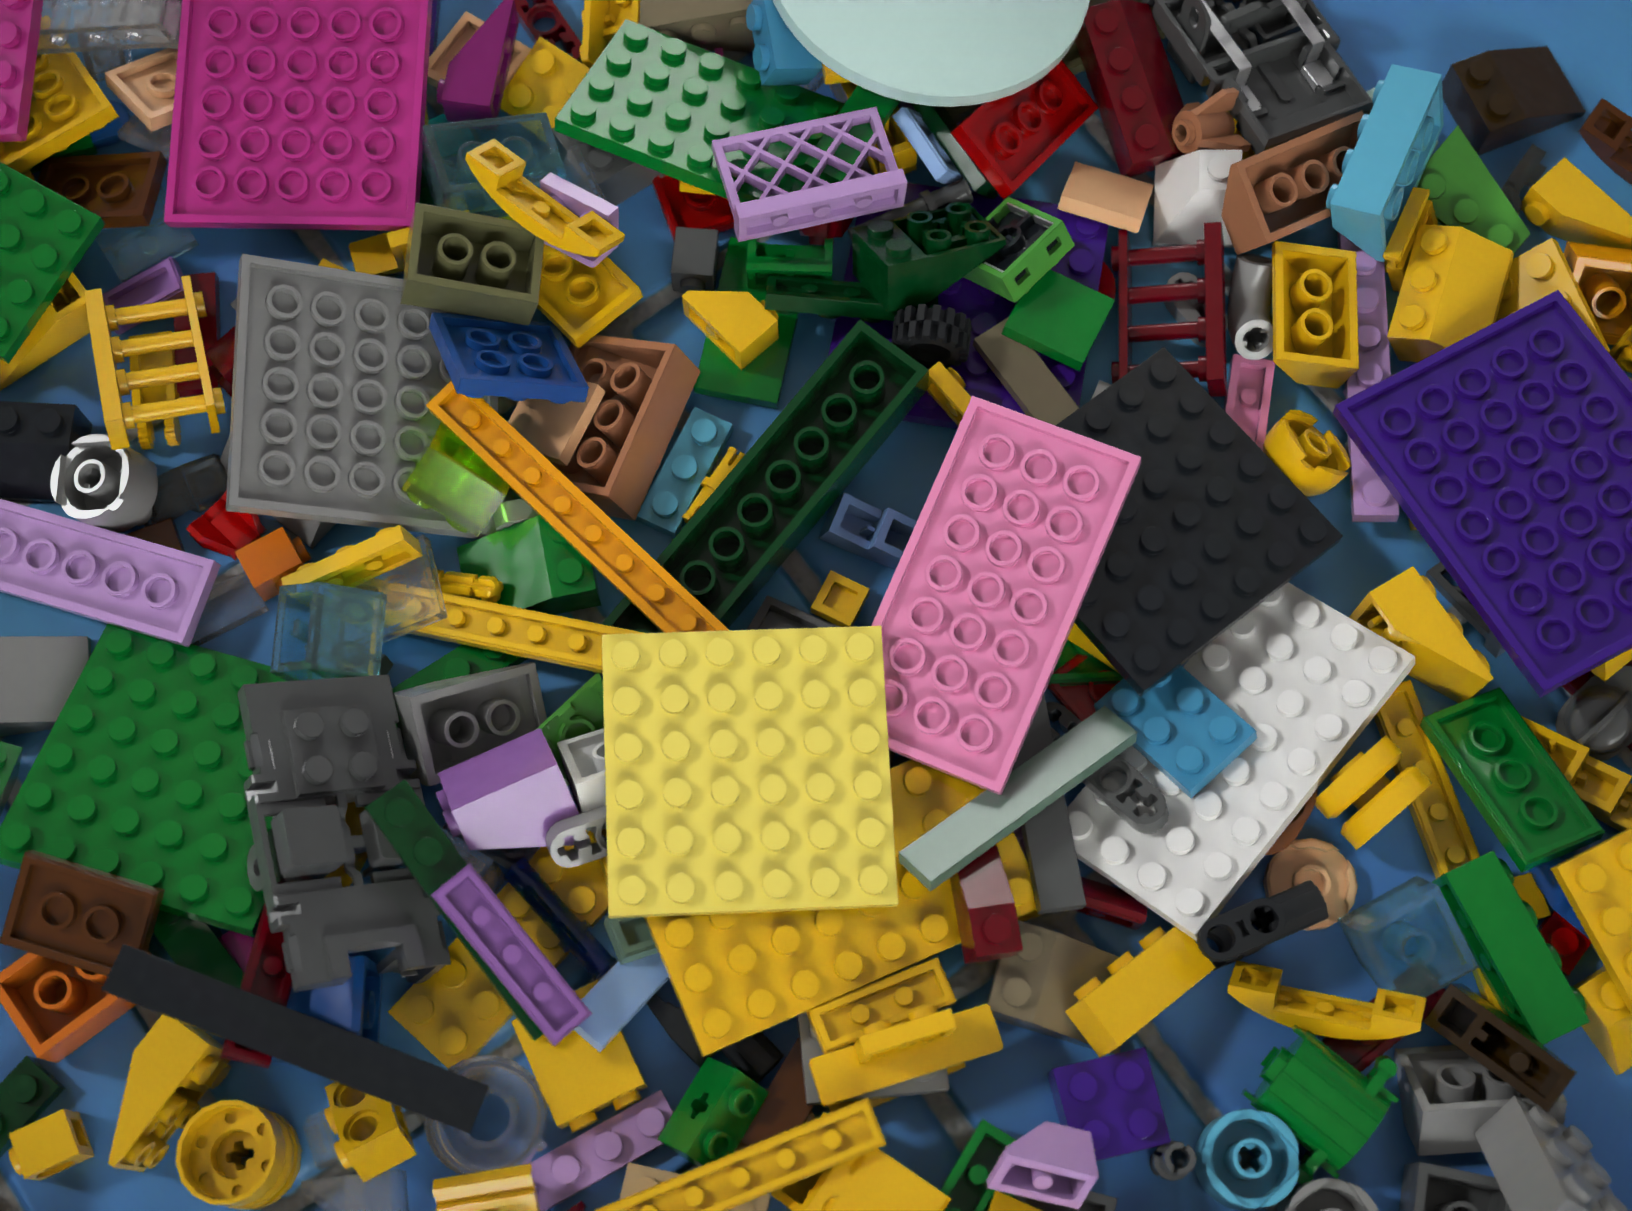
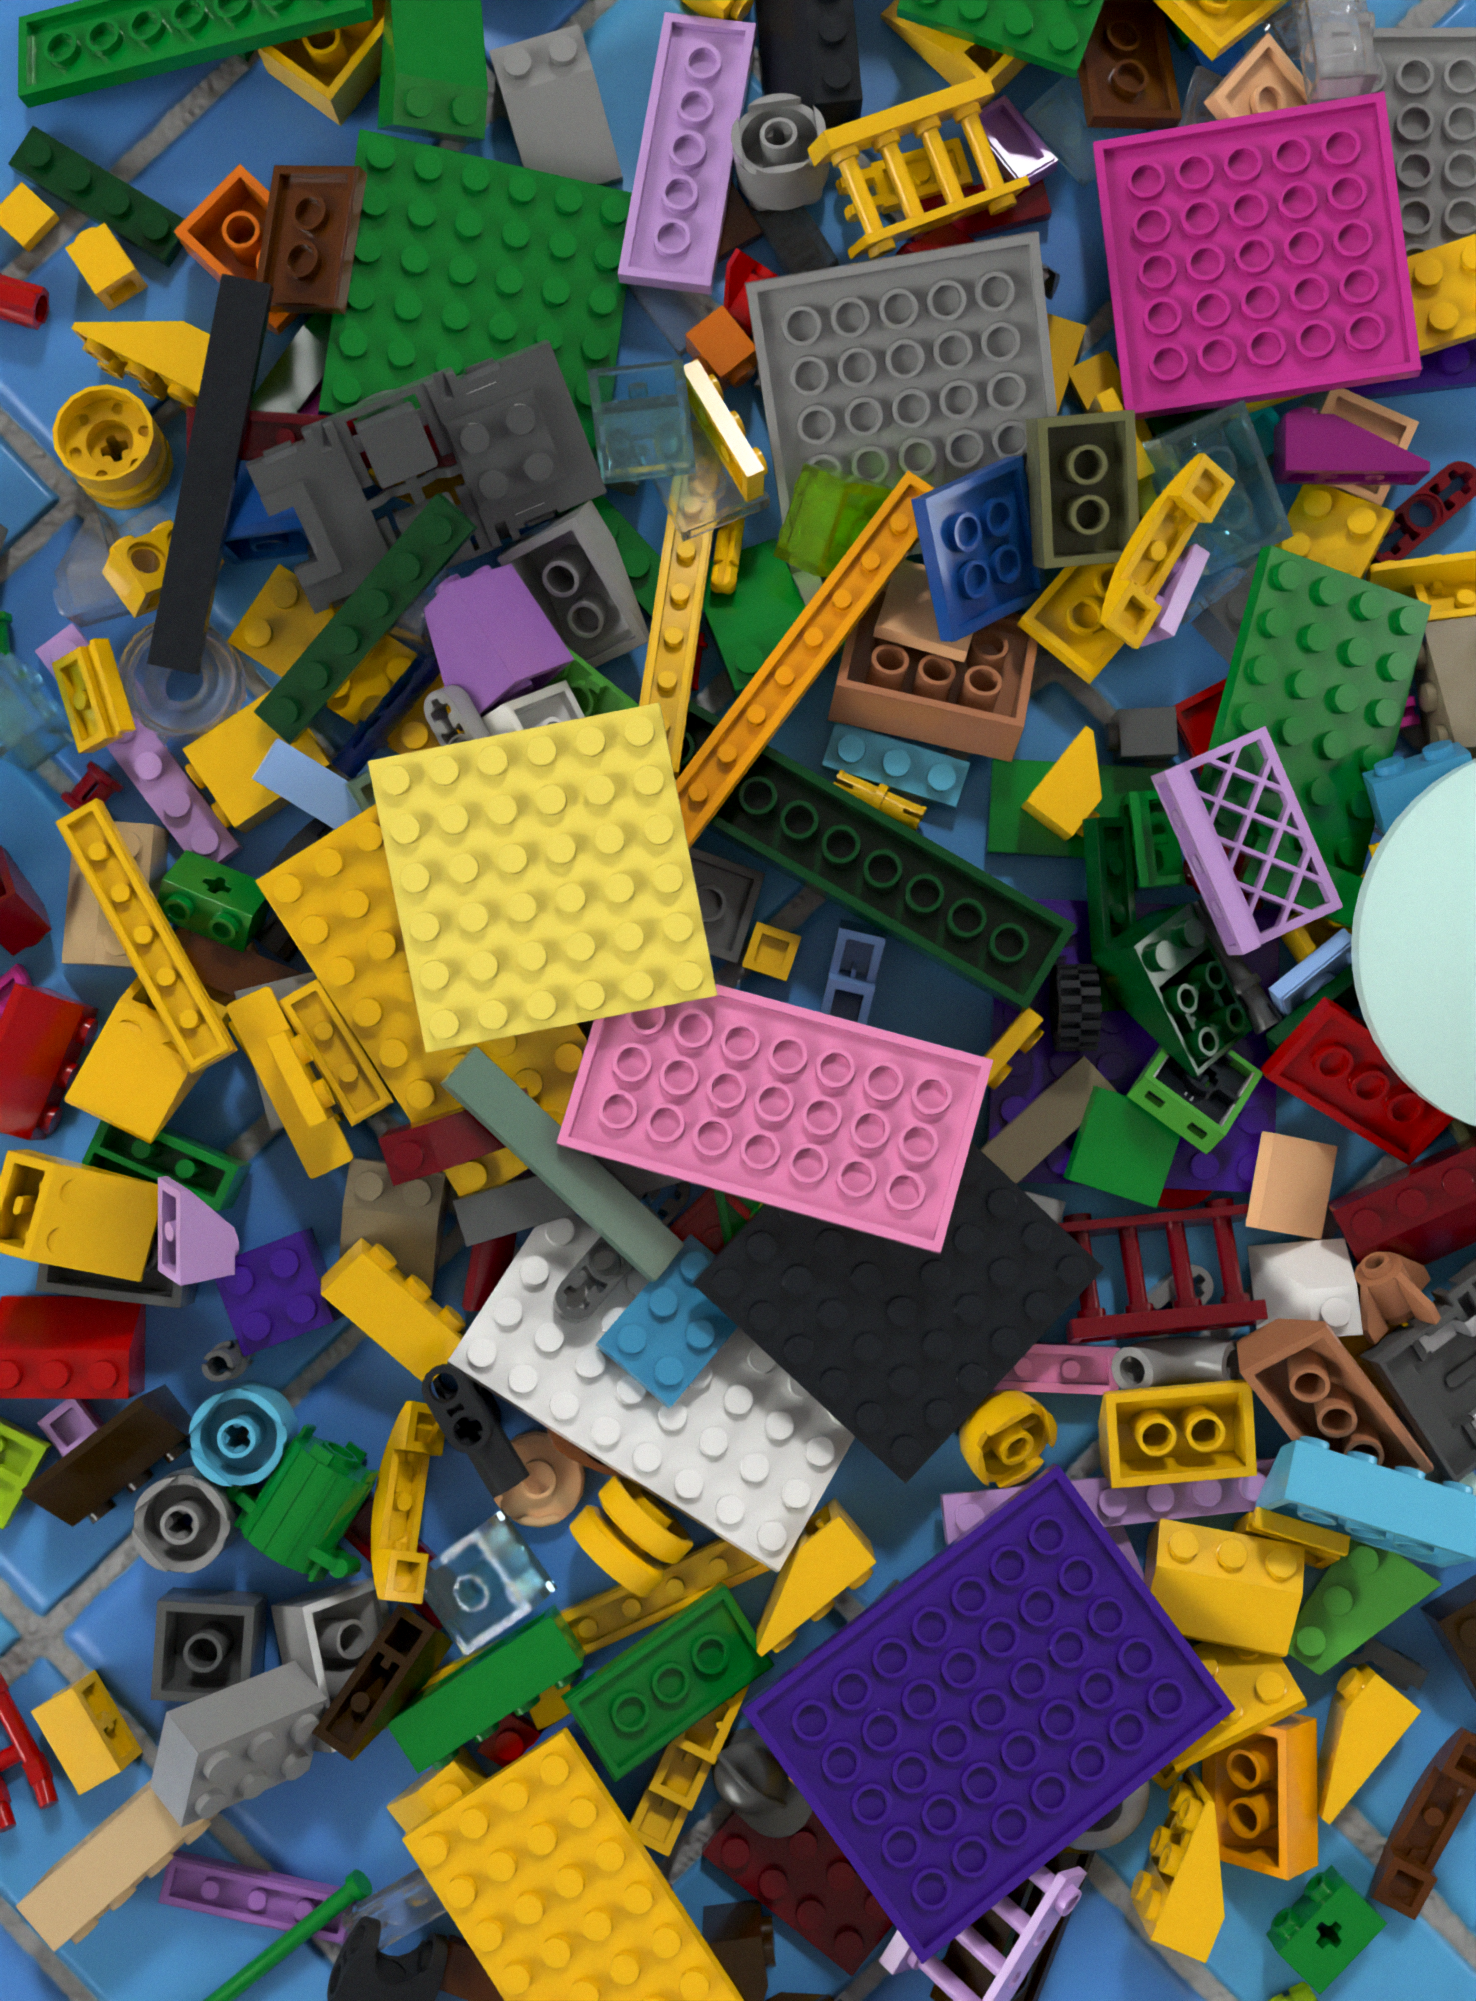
camera: 85 degrees right, 15 degrees up
(511, 954) = (321, 670): medium lavender tile -> none

